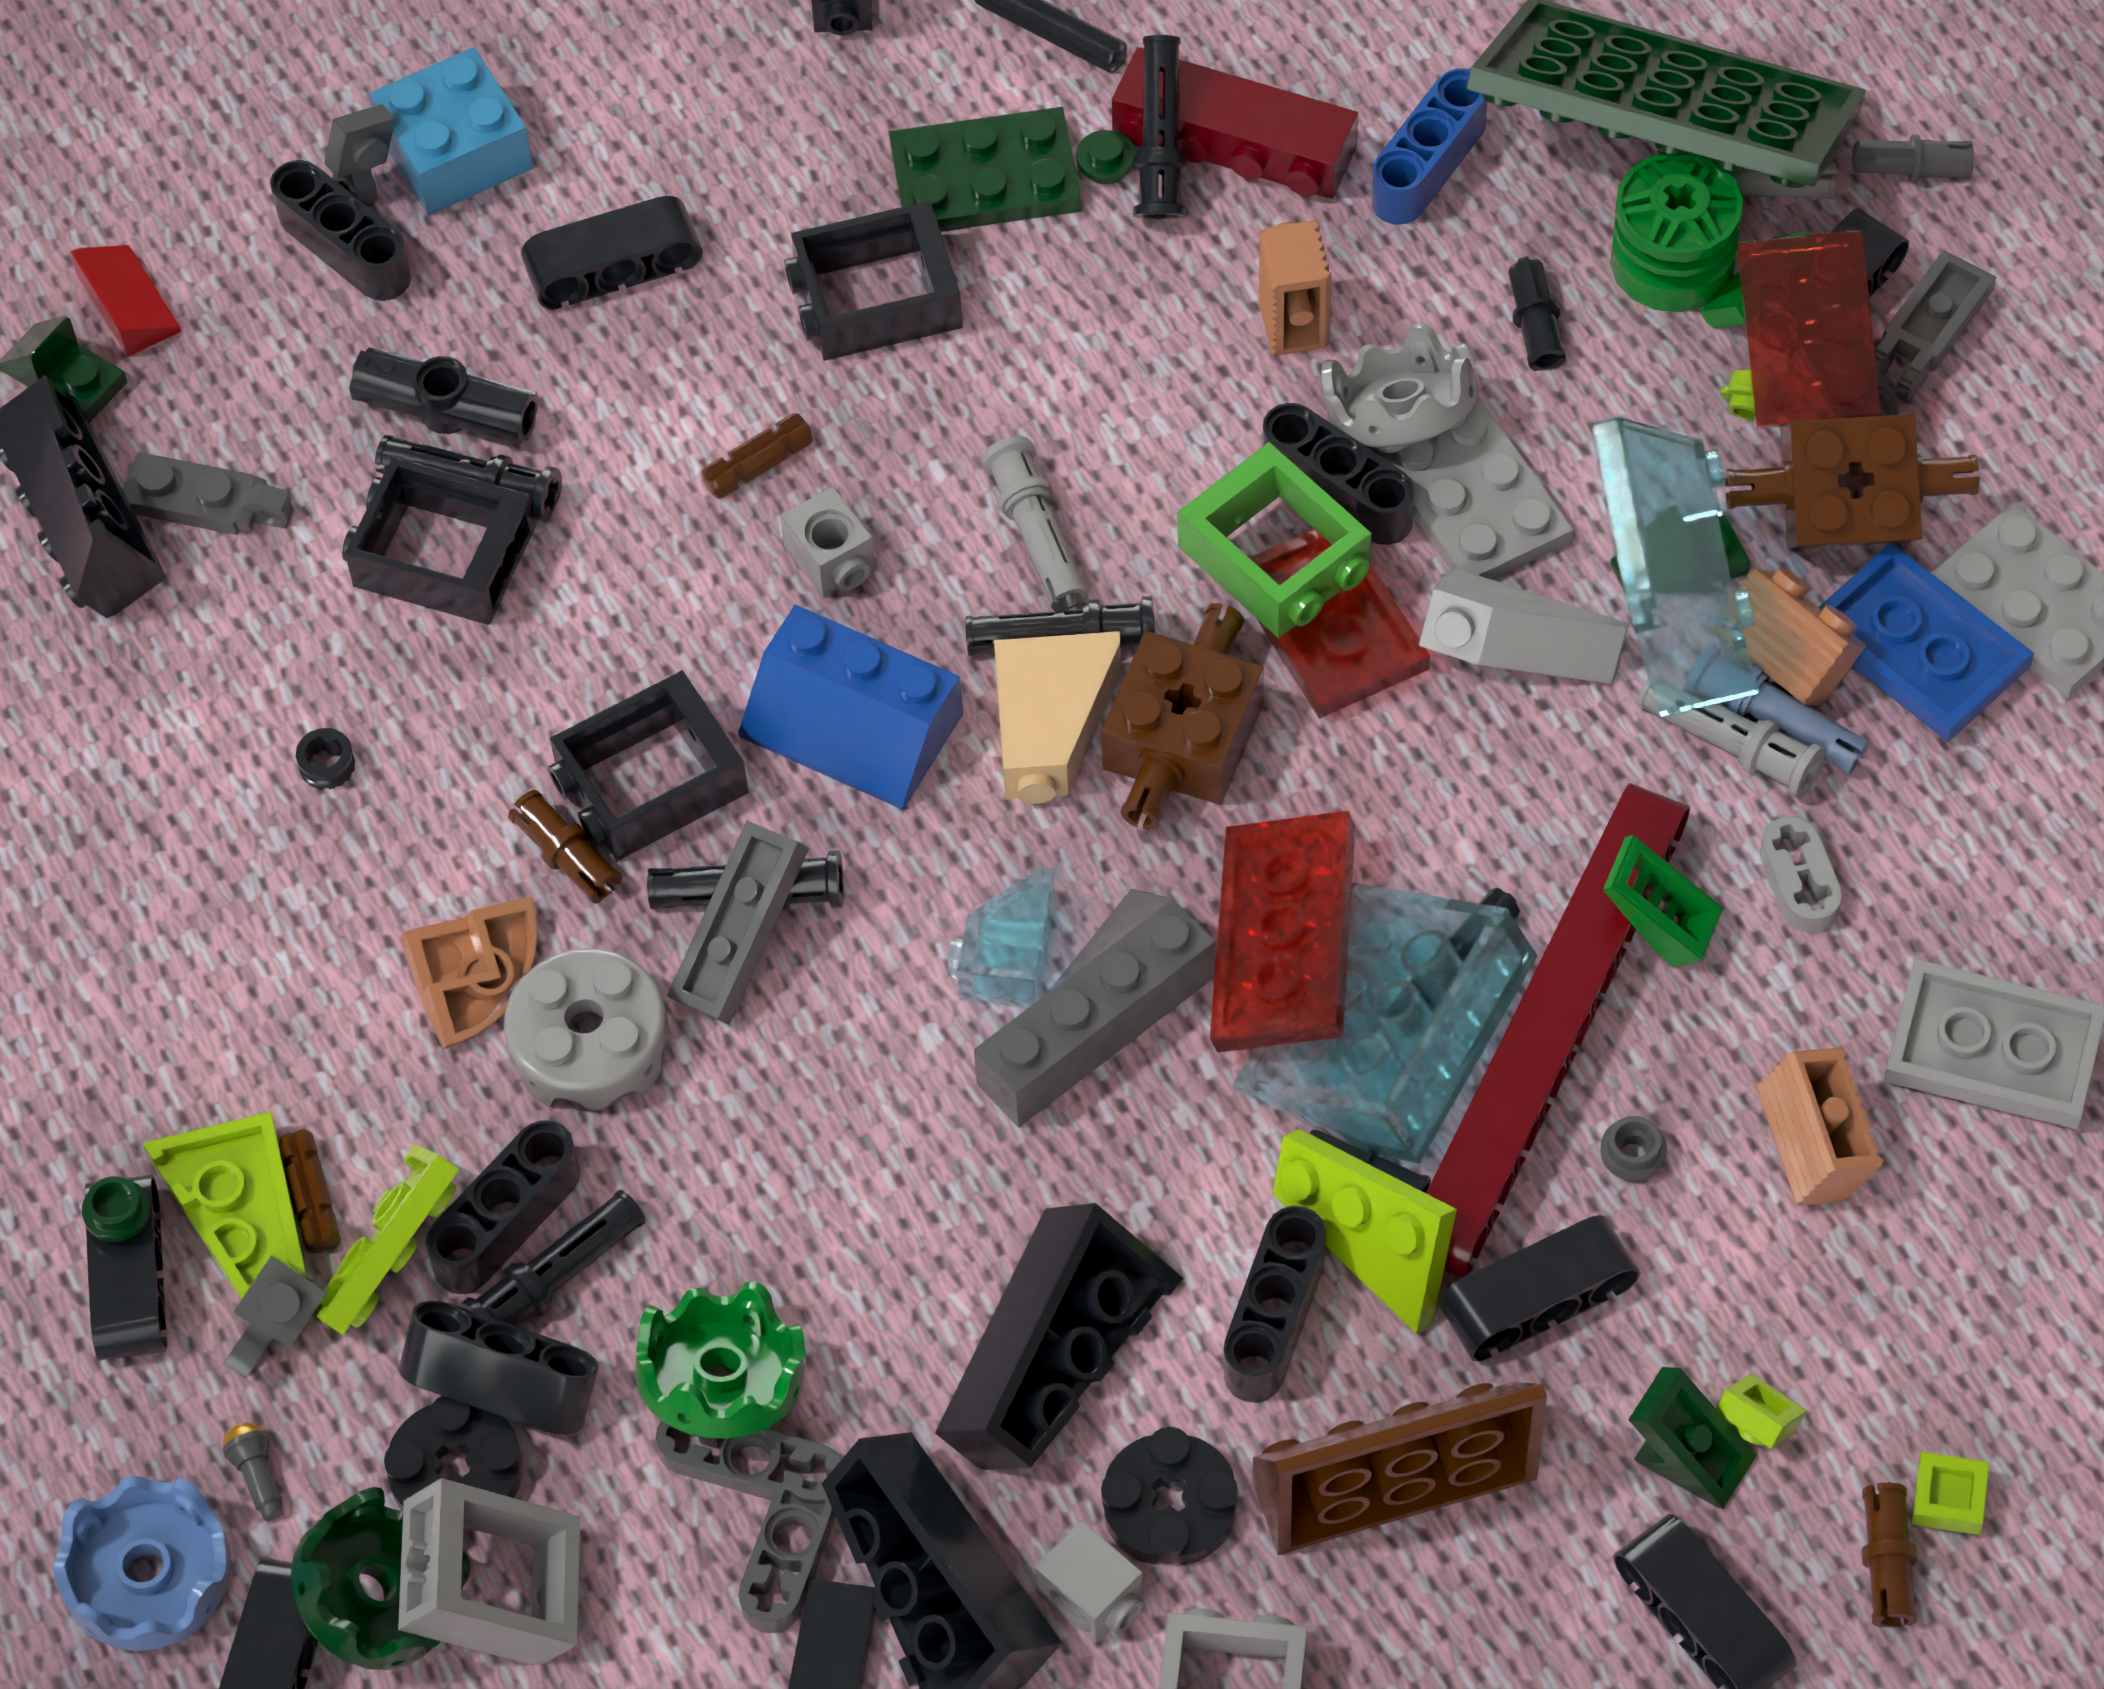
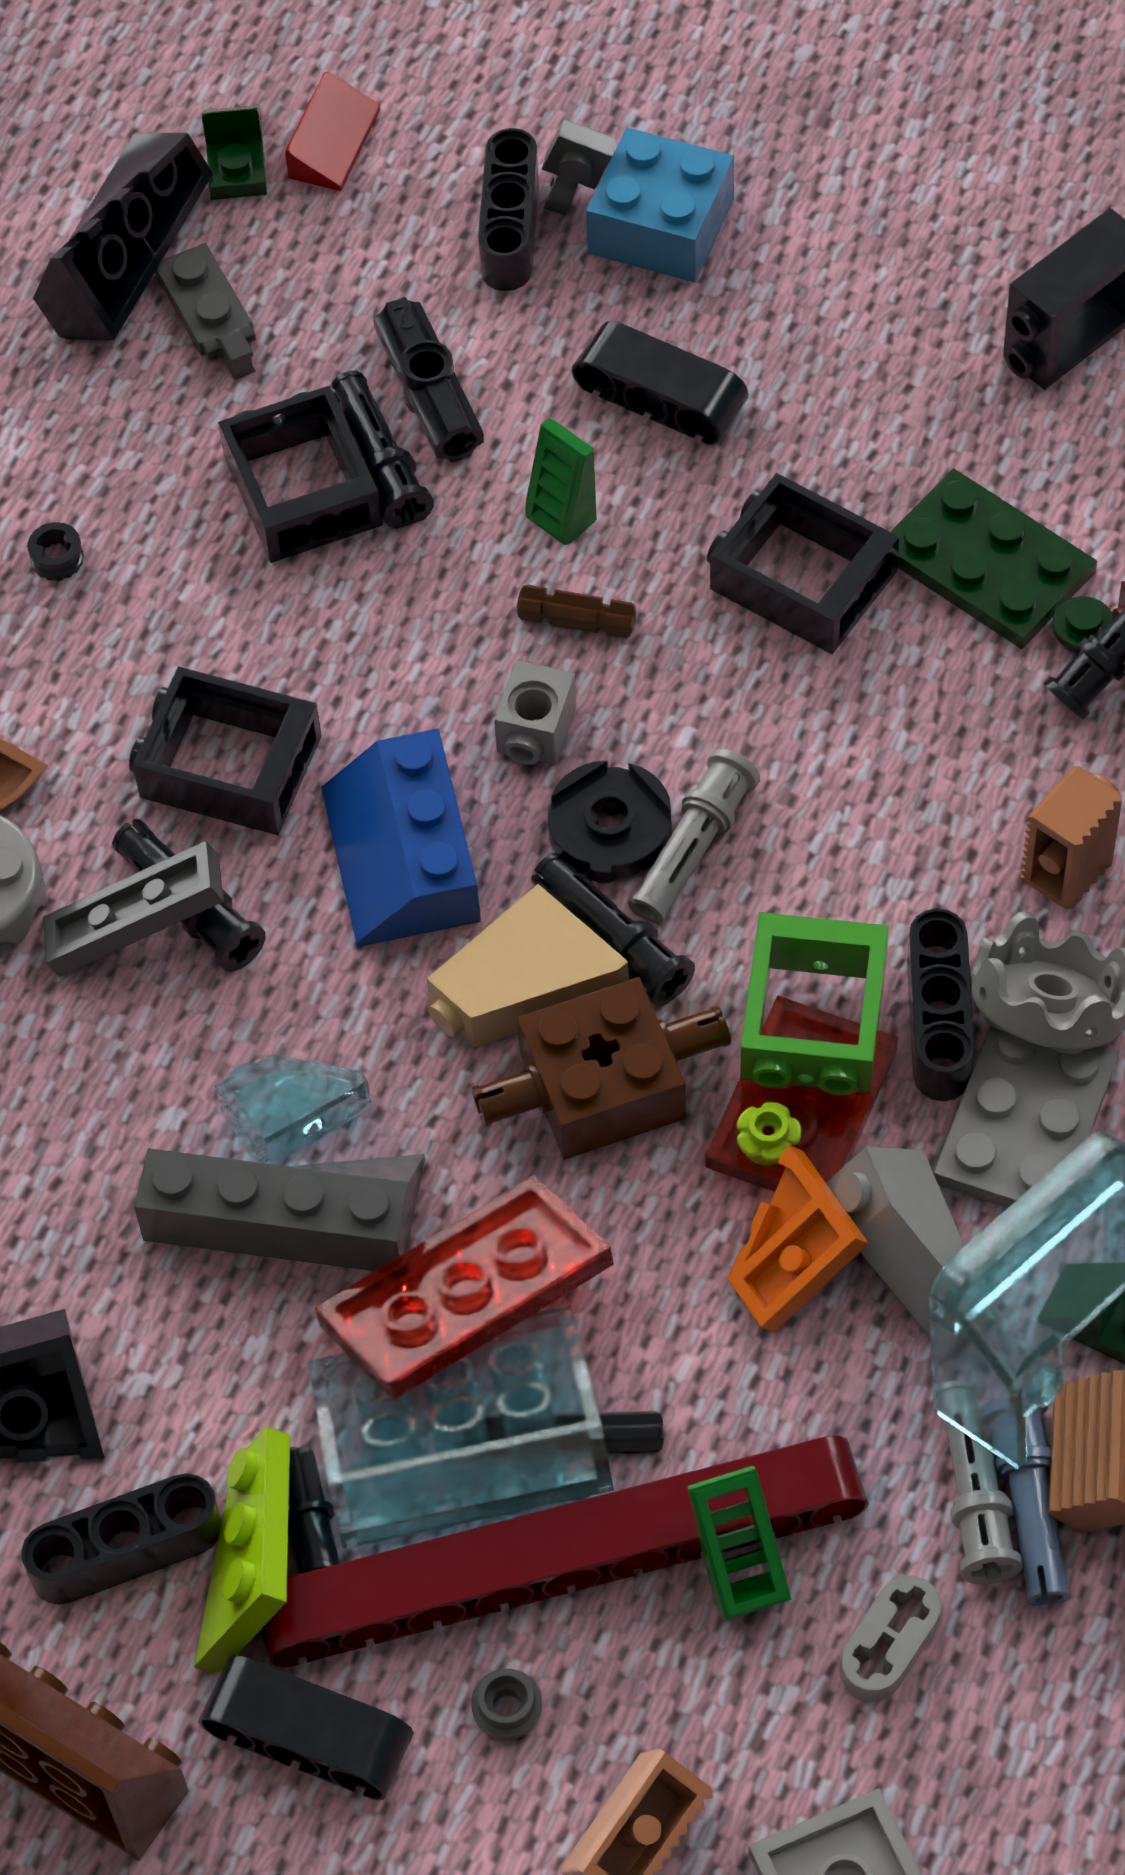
camera: 50 degrees right, 0 degrees up
(564, 846) = (112, 752): reddish brown pin -> none
(651, 377) = (562, 484): none -> green slope
(964, 533) = (616, 851): none -> black plate
(1346, 663) = (767, 1148): none -> lime plate
(1450, 699) = (793, 1244): none -> orange wing

